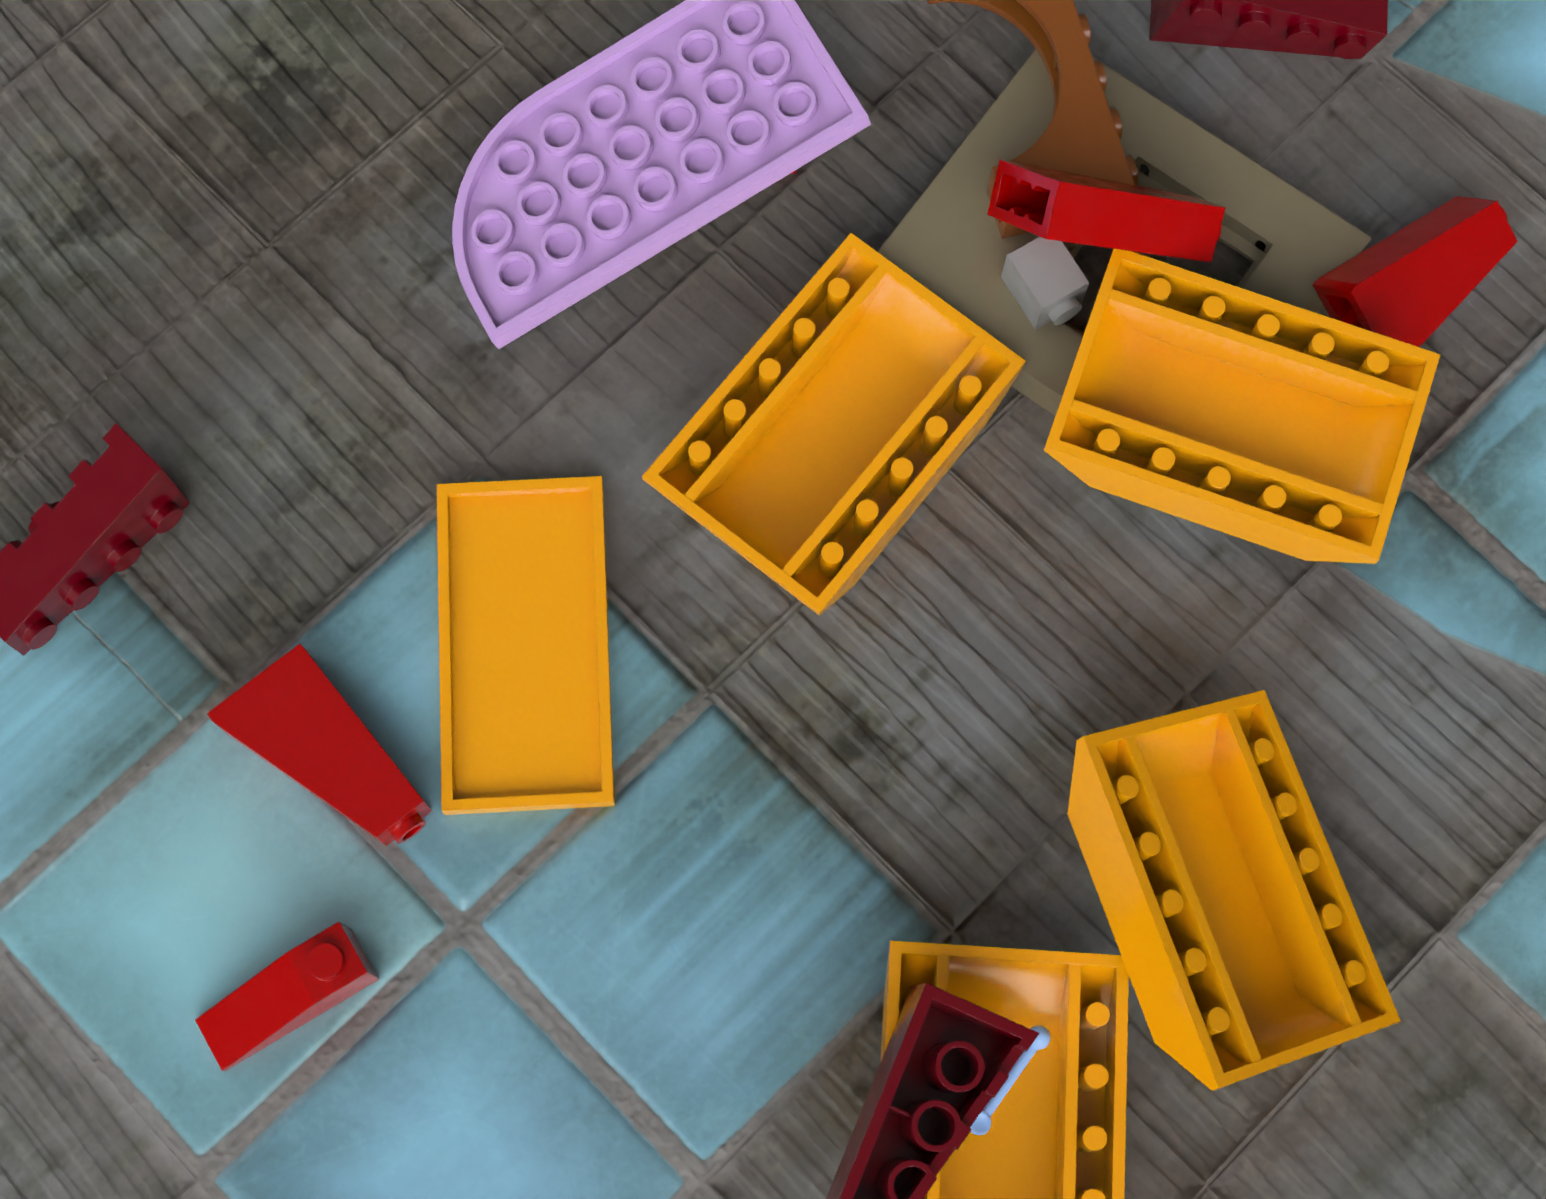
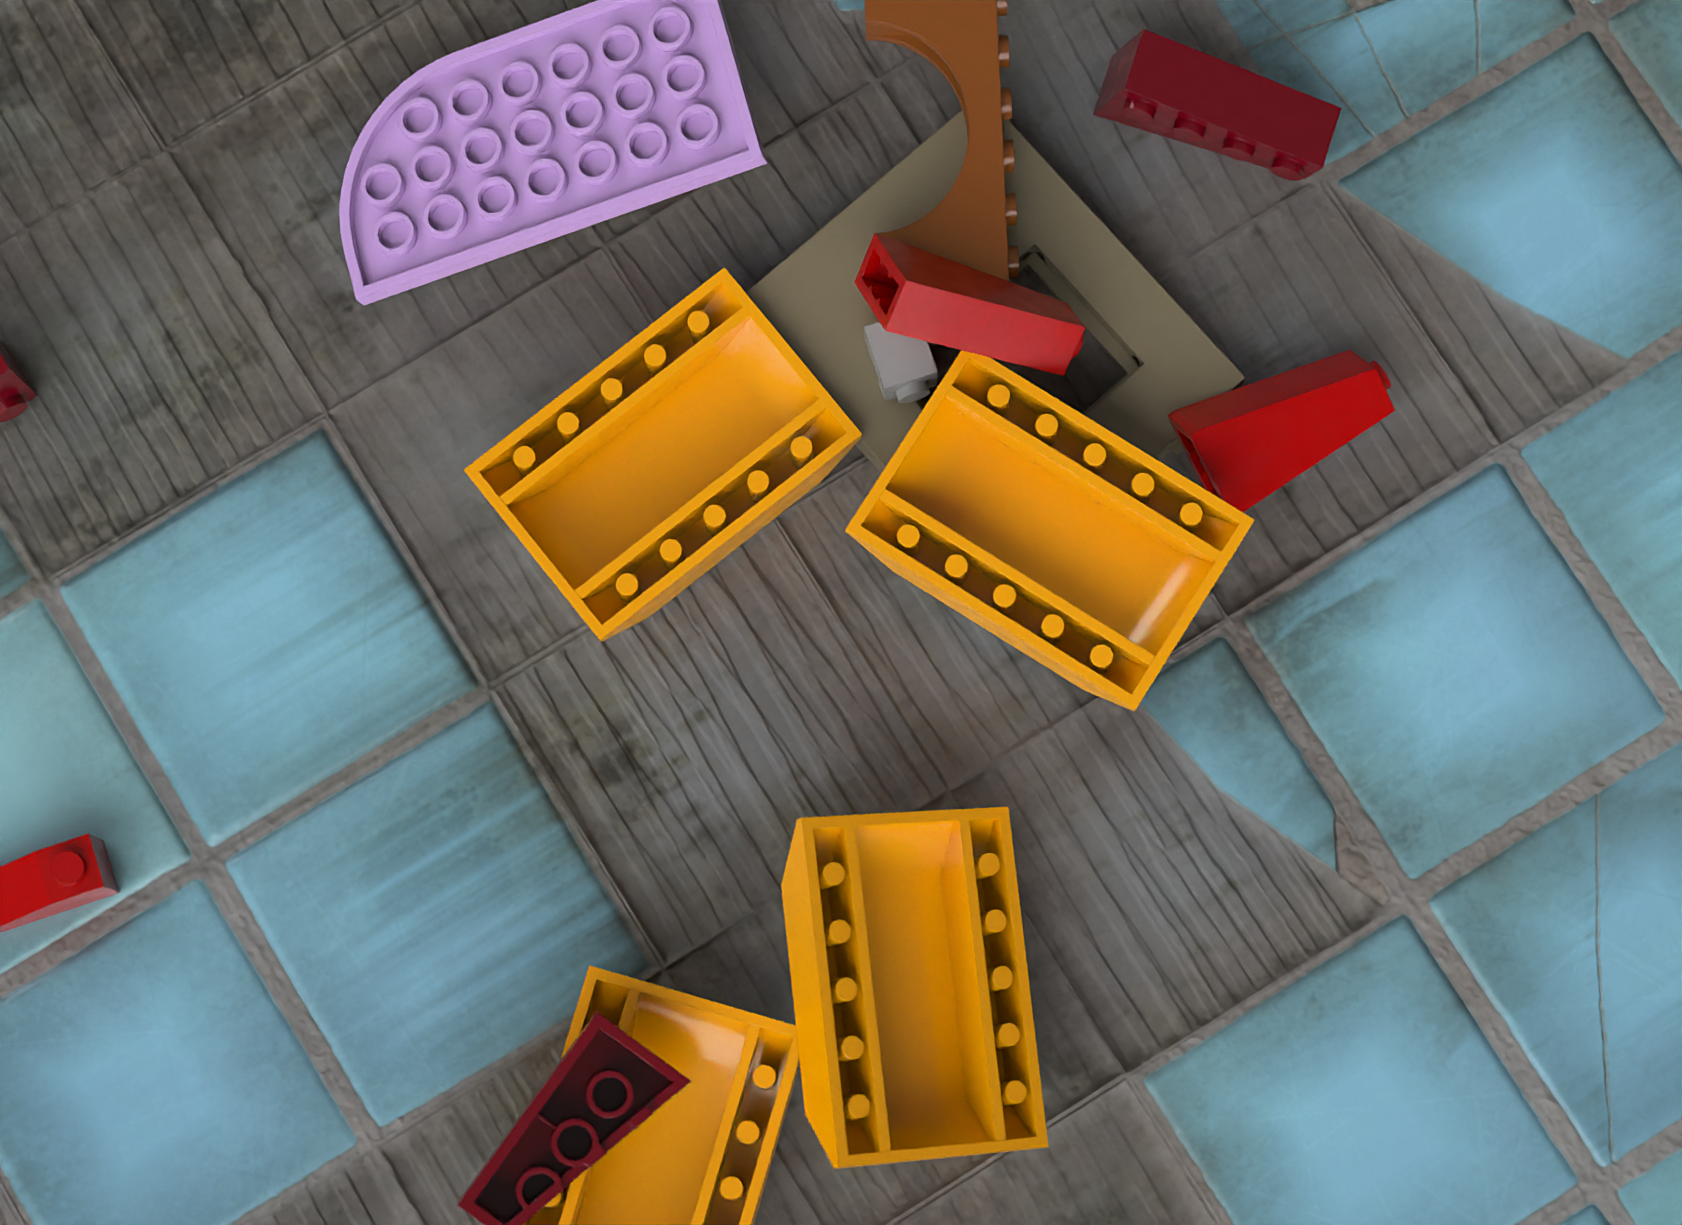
camera: 20 degrees right, 5 degrees up
(318, 741) = (109, 657): red slope -> none
(524, 646) = (323, 603): light orange tile -> none
(983, 1121) = (628, 1148): light blue hinge -> none

